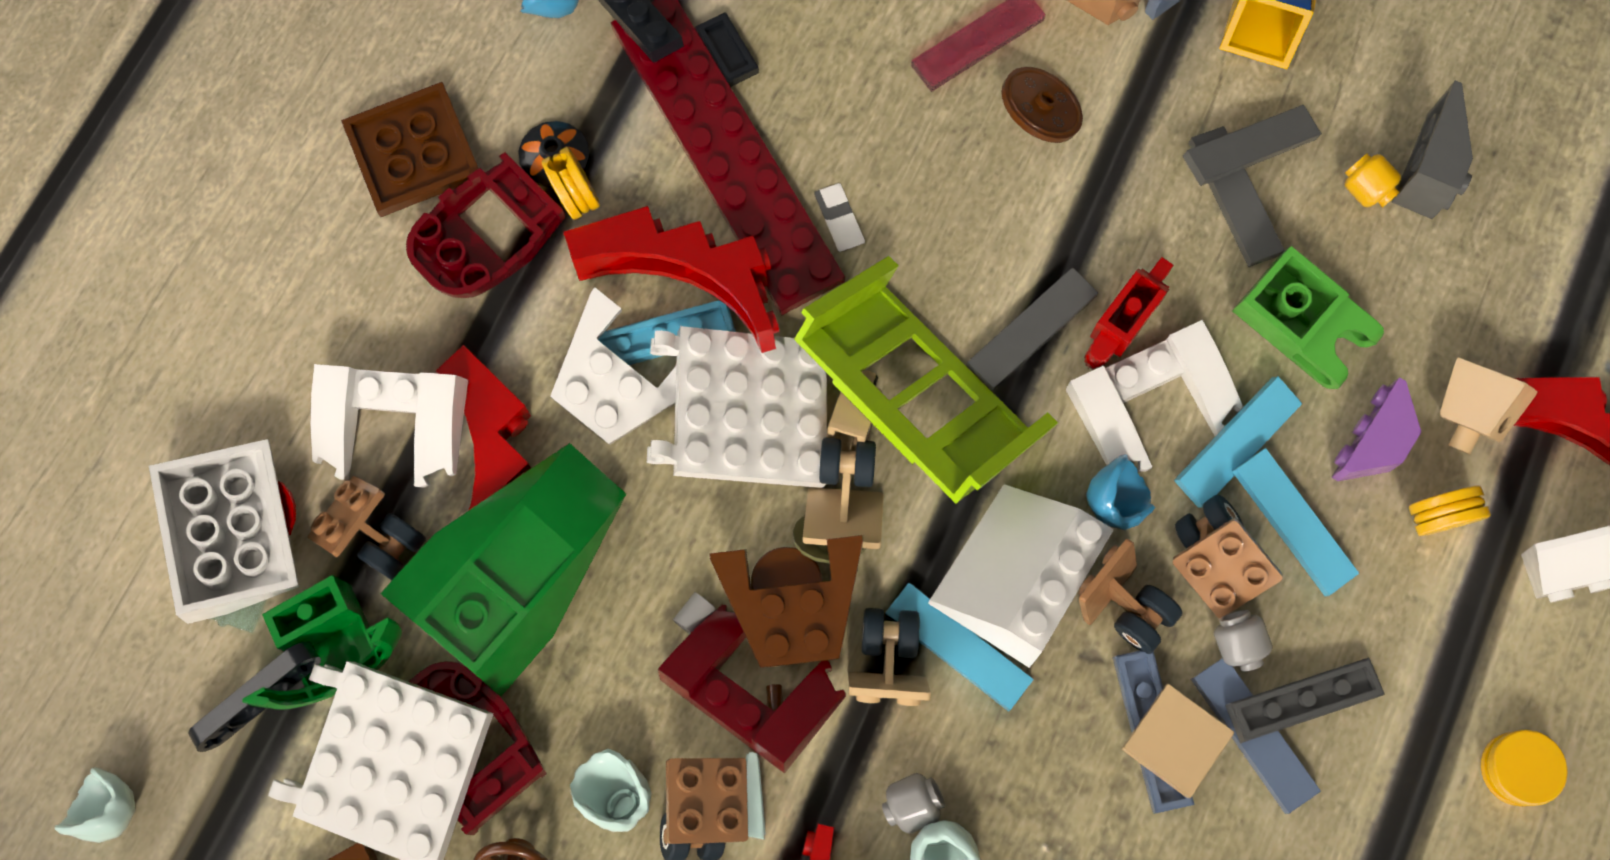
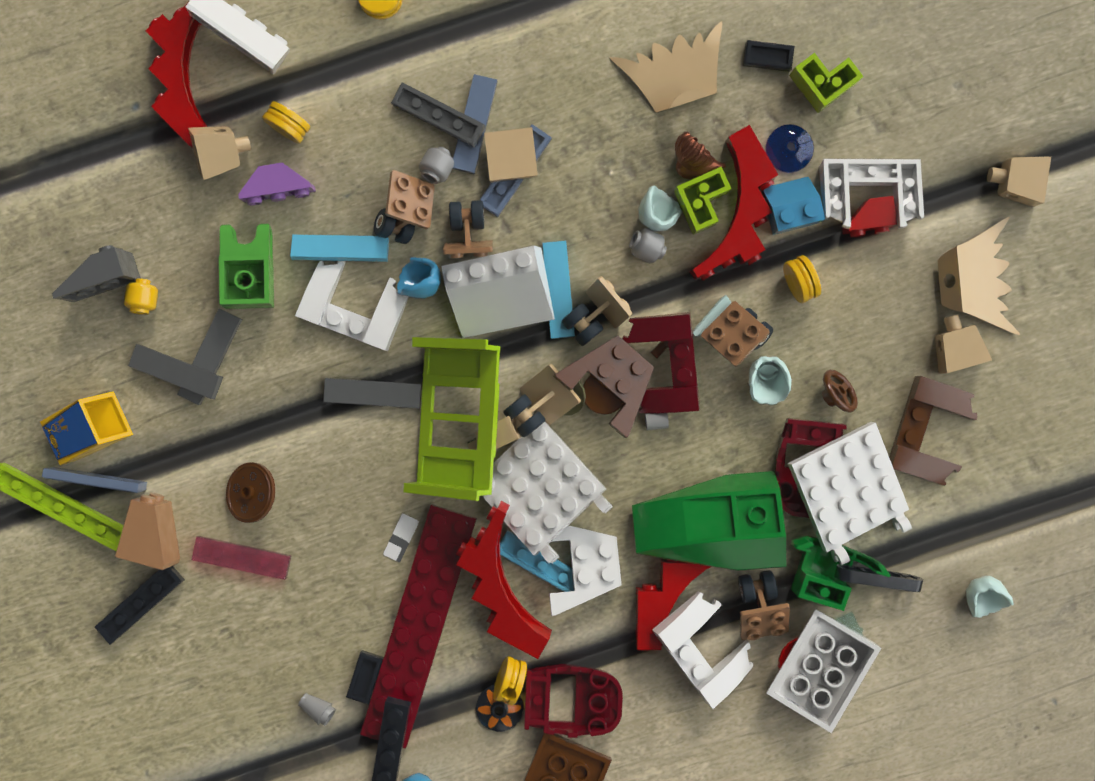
camera: 130 degrees left, 15 degrees up
(1128, 314) = (323, 353): red hinge -> none
(1295, 522) = (356, 189): medium azure tile -> none

